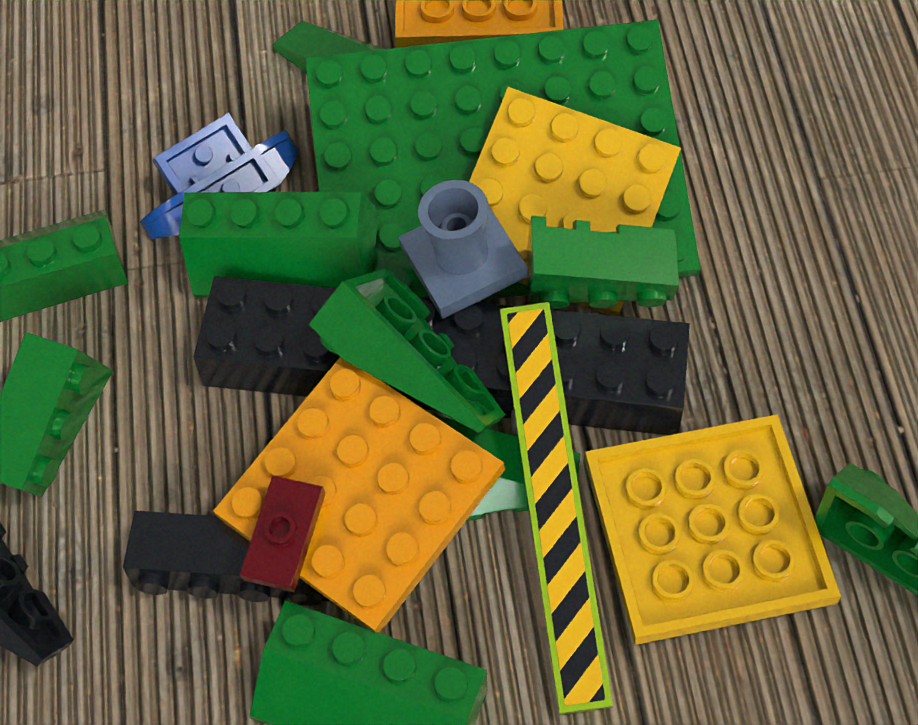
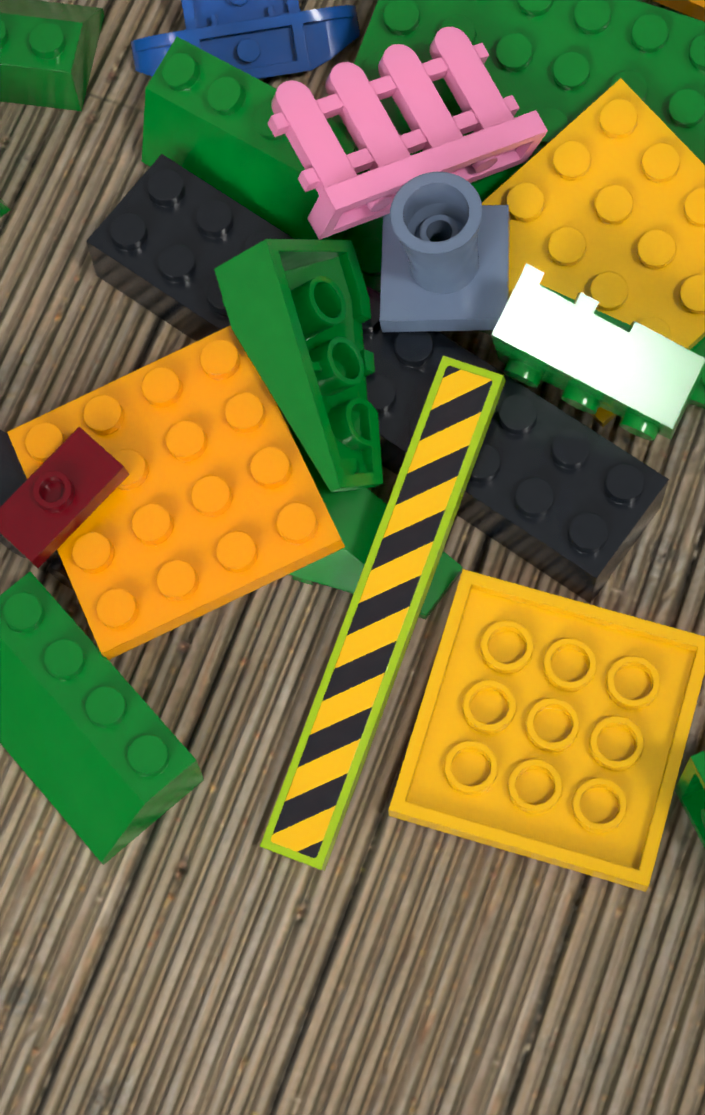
camera: 30 degrees right, 10 degrees up
(398, 207) = (354, 199): none -> bright pink fence

